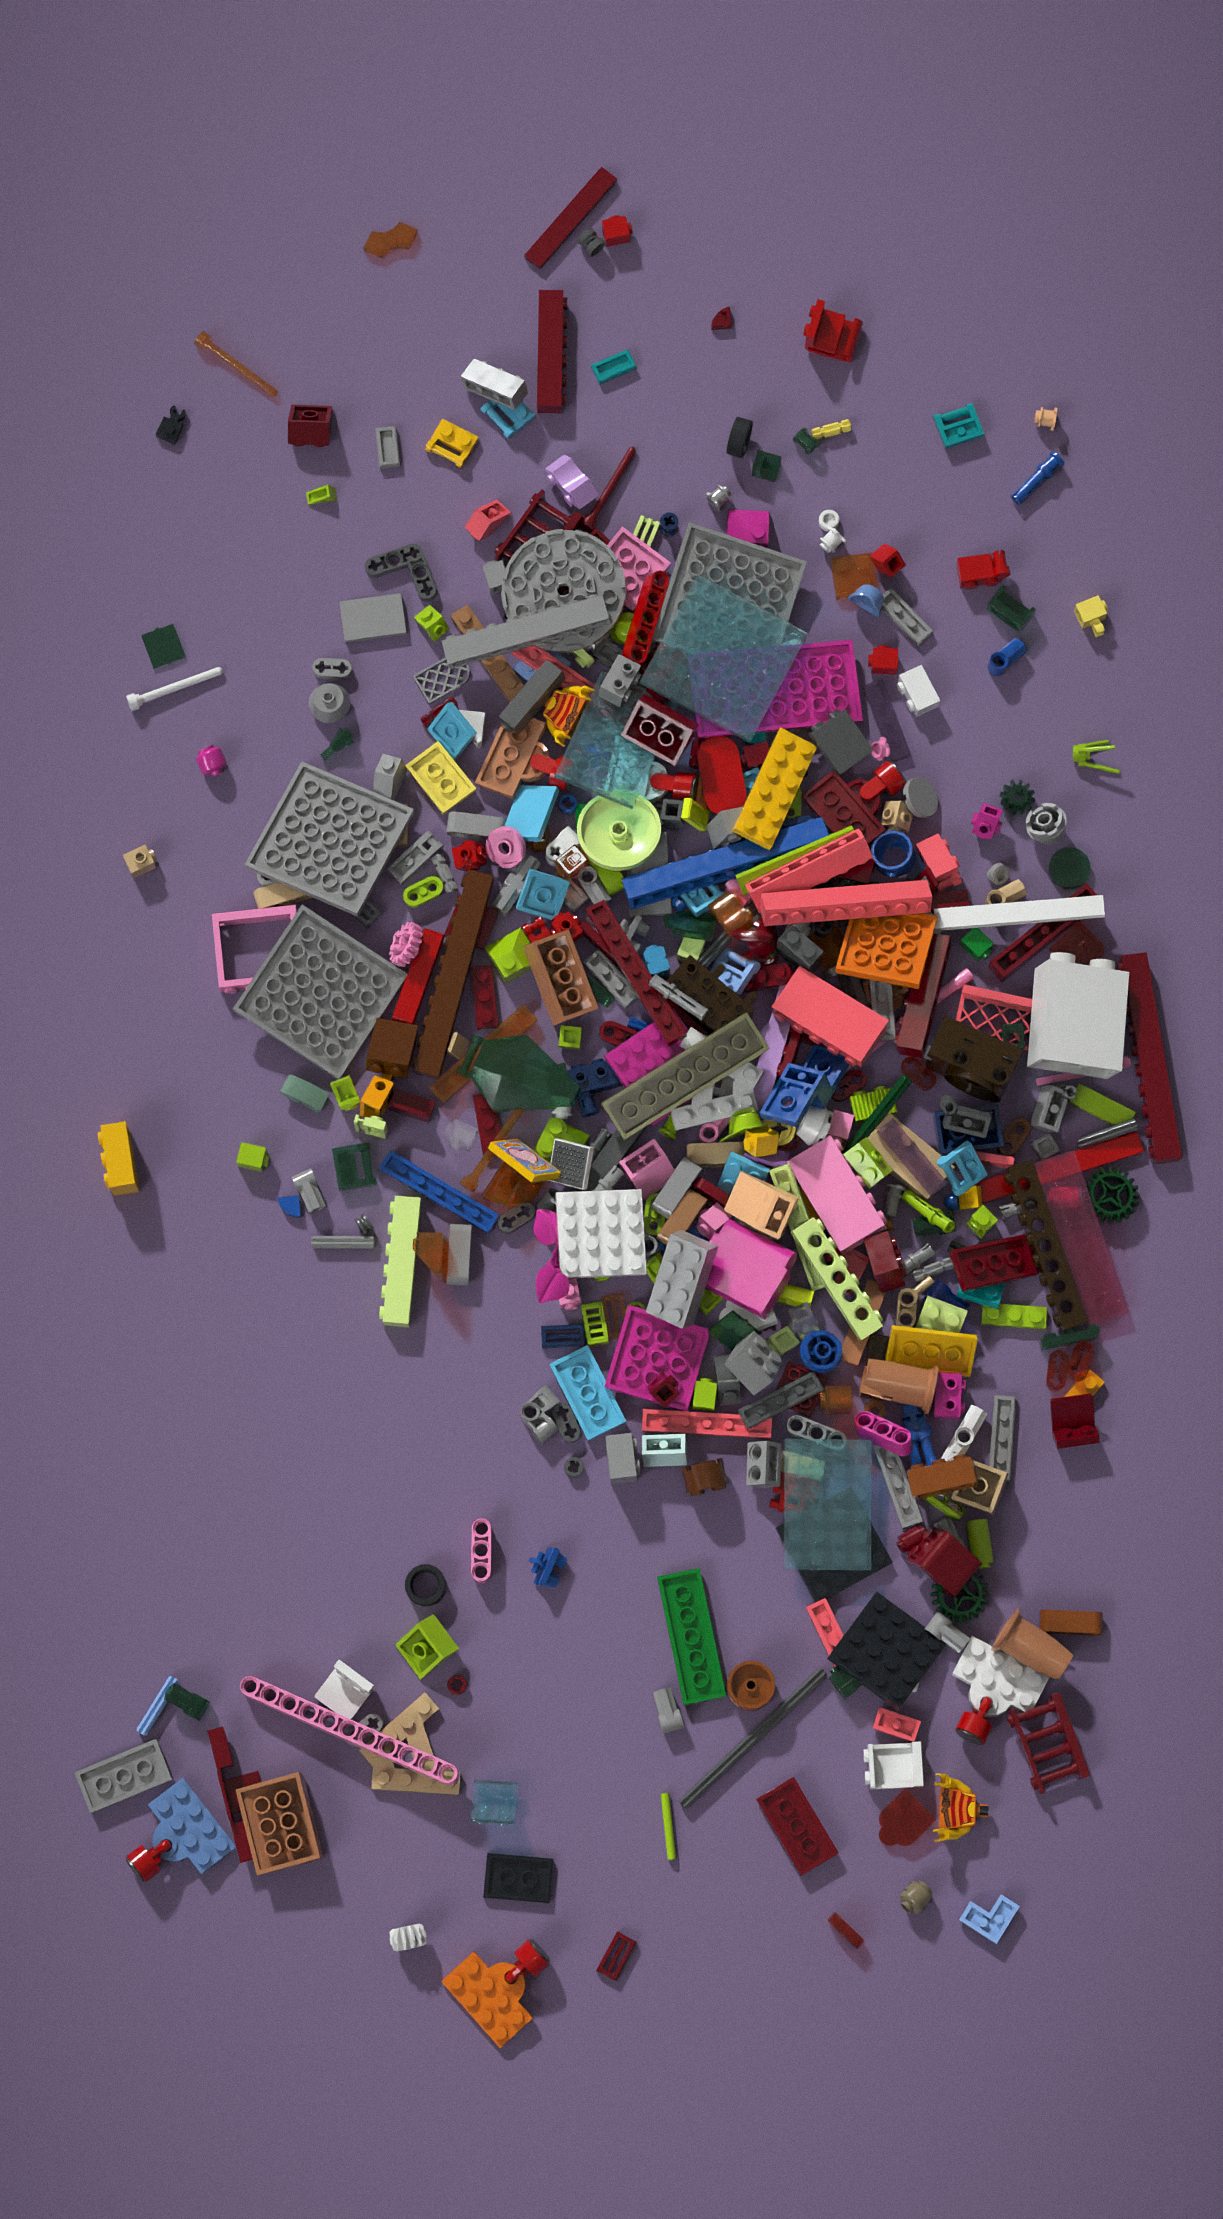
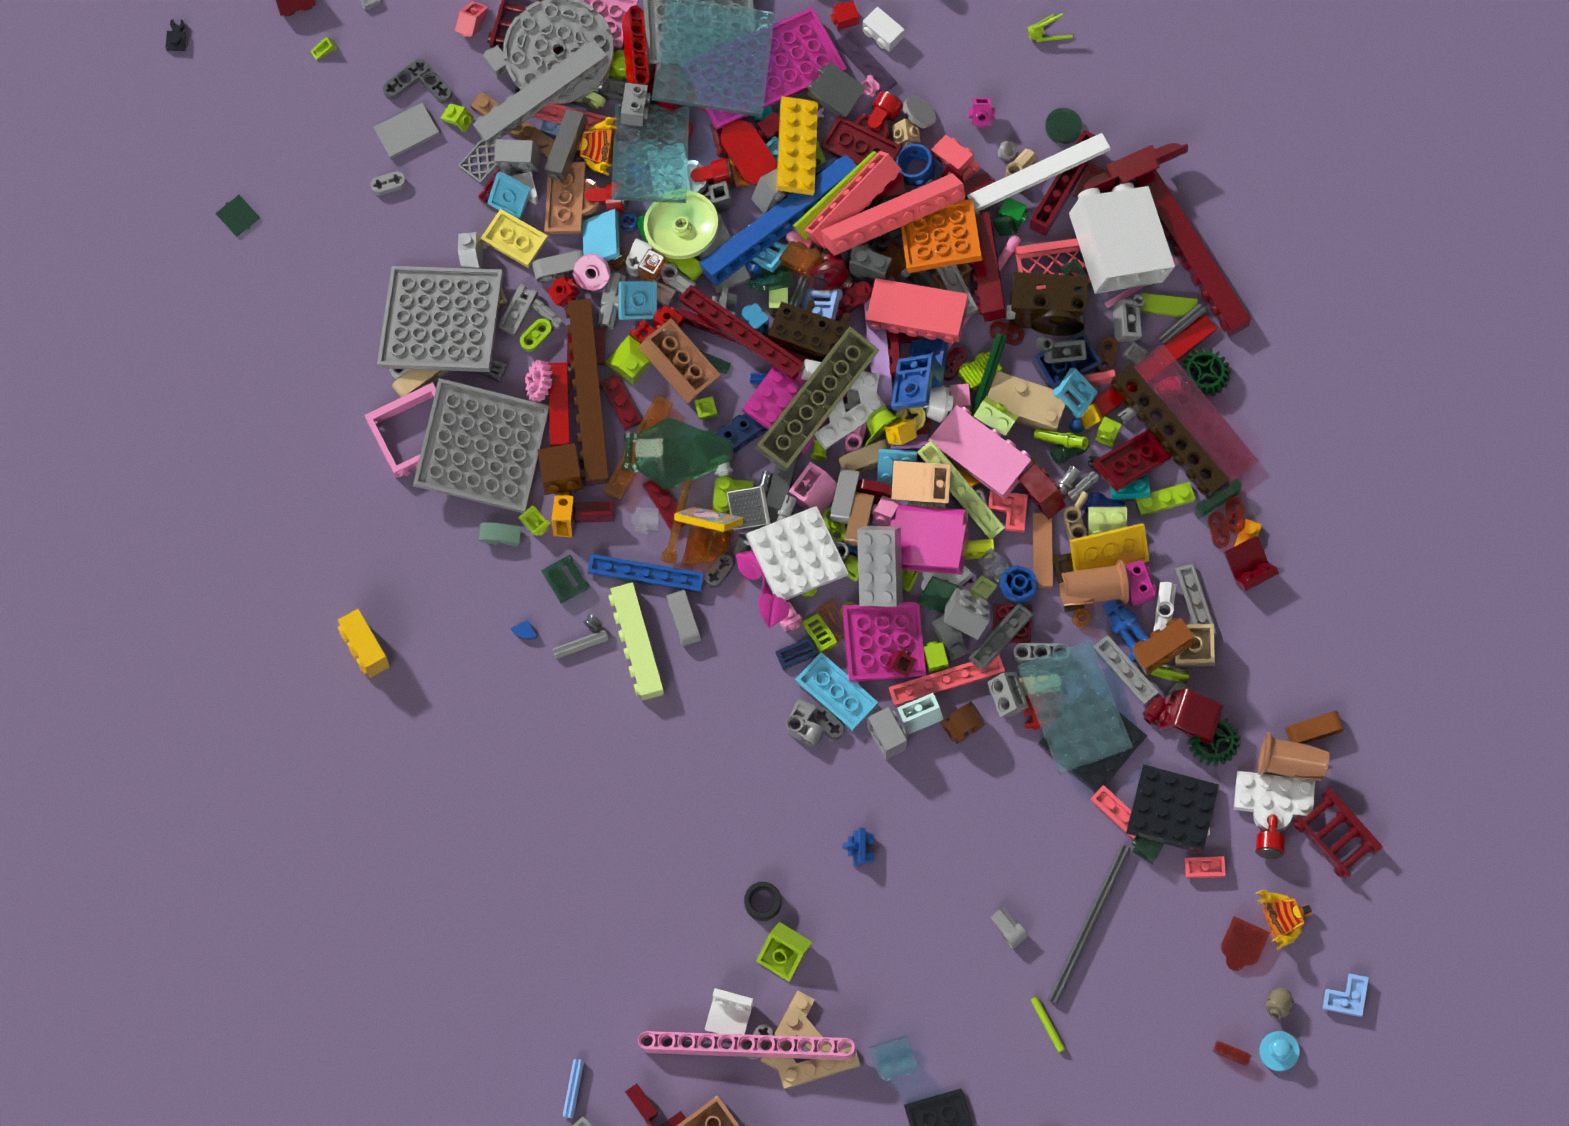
camera: 20 degrees left, 5 degrees down
(136, 701) = (232, 266): white piece -> none
(140, 861) = (286, 395): tan brick -> none
(190, 1703) = (601, 1075): clear green piece -> none
(211, 760) = (315, 292): dark pink head -> none
(252, 1157) = (476, 602): lime brick -> none
(307, 1187) = (532, 609): light grey piece -> none
(329, 703) = (396, 211): light grey cone -> none
(341, 740) = (418, 237): clear green cone -> none
(373, 1126) = (568, 538): yellowish green plate -> none
(433, 1251) = (660, 622): clear orange slope -> none
(451, 1681) = (828, 974): dark red bush -> none
(458, 1046) = (614, 449): tan slope -> none
(477, 691) = (517, 156): none -> light grey brick
(481, 1561) = (799, 845): bright pink beam -> none
(567, 1466) = (843, 757): dark grey bush -> none
(588, 1104) = (742, 456): dark blue bush -> none
(611, 978) = (722, 349): light grey tile -> none
(620, 1034) = (746, 389): dark red plate -> none
(659, 729) = (683, 131): dark red slope -> none
(671, 992) = (785, 337): light grey pin -> none
(691, 1636) = (1004, 859): green plate -> none
(695, 814) = (739, 190): neon yellow tile -> none
(747, 1698) = (1081, 875): dark orange wheel -> none
(797, 1826) = (1156, 982): dark red plate -> none
(802, 1236) = (997, 519): yellowish green brick -> none
(836, 1400) = (1047, 619): clear orange brick -> none
(879, 1425) = (1098, 631): dark pink beam -> none
(893, 1198) = (1027, 439): light grey pin -> none
(894, 1765) = (1217, 902): white panel -> none
(896, 1946) = (1279, 1051): none -> medium azure plate
(912, 1157) = (1031, 399): tile -> none
(944, 1630) = (1218, 776): light grey piece -> none
(962, 956) = (1005, 226): none -> clear green plate
(980, 1541) = (1211, 689): lime brick -> none
(1020, 790) = (996, 90): clear green gear -> none
(1046, 824) = (1031, 96): light grey cone -> none
(1125, 943) = (1136, 165): none -> dark red piece

